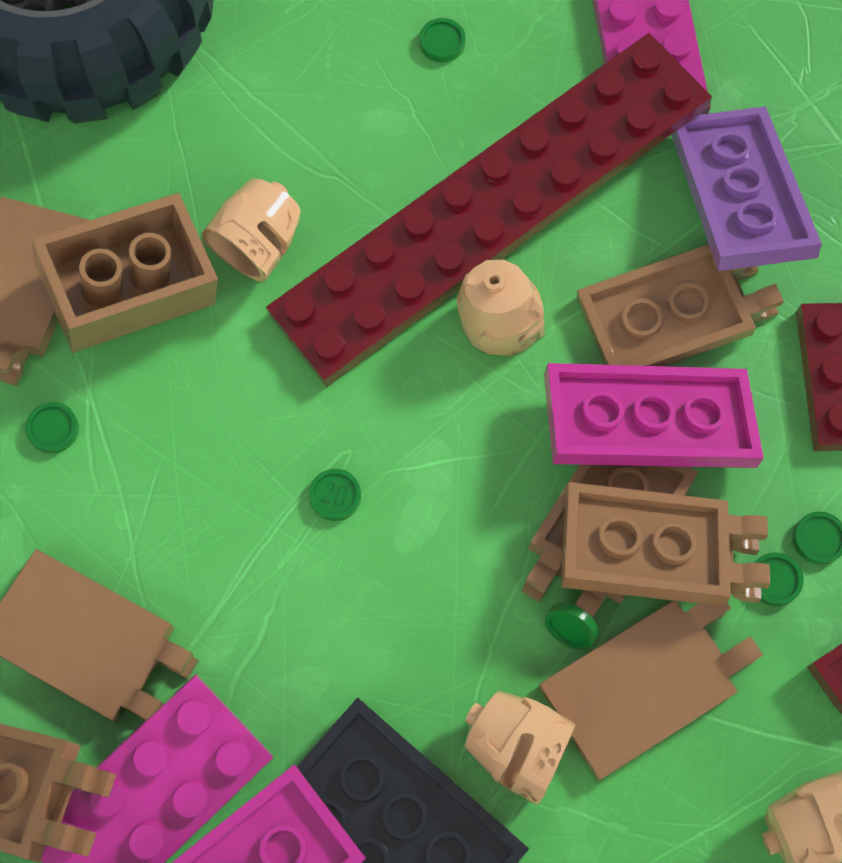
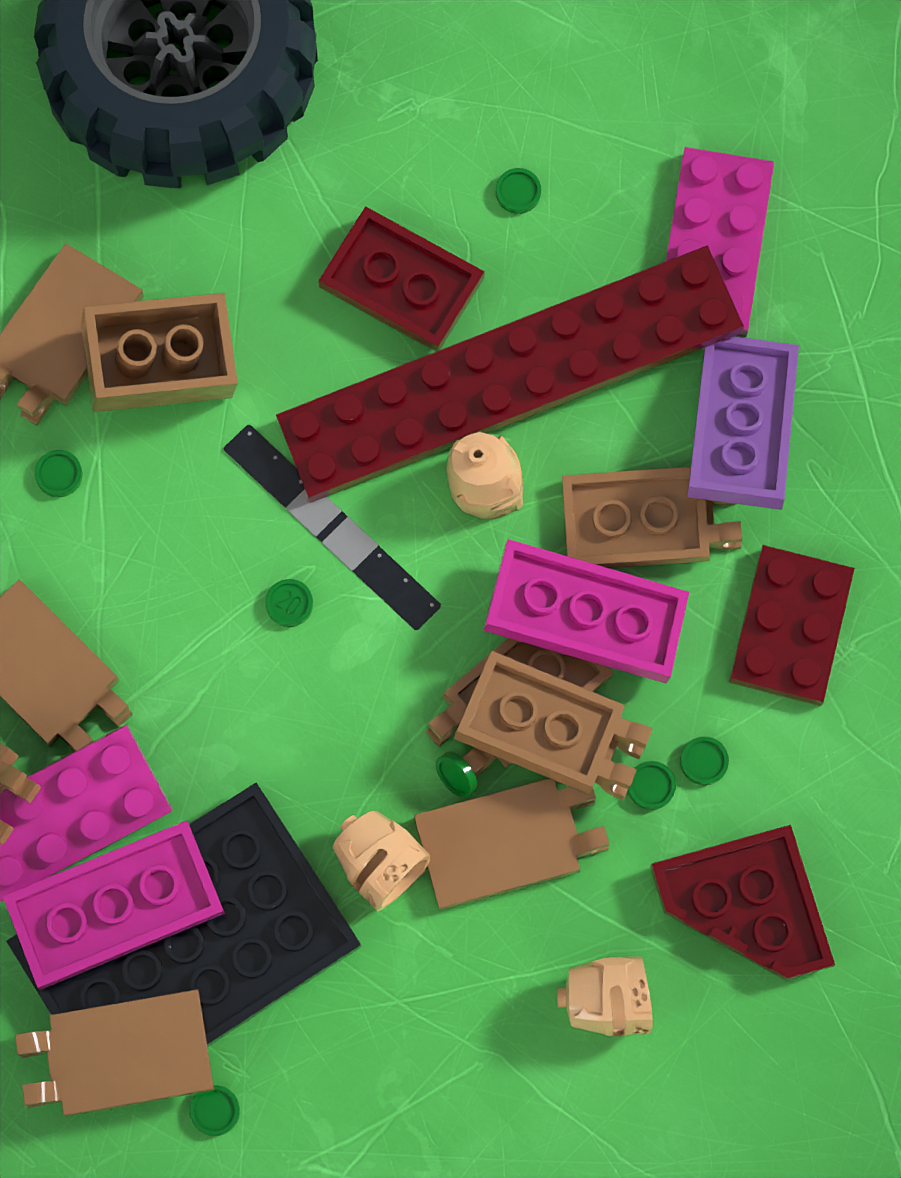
camera: 15 degrees right, 5 degrees up
(254, 228) = (285, 338): light nougat helmet -> none
(354, 145) = (401, 279): none -> dark red plate
(359, 407) = (333, 528): none -> black sticker

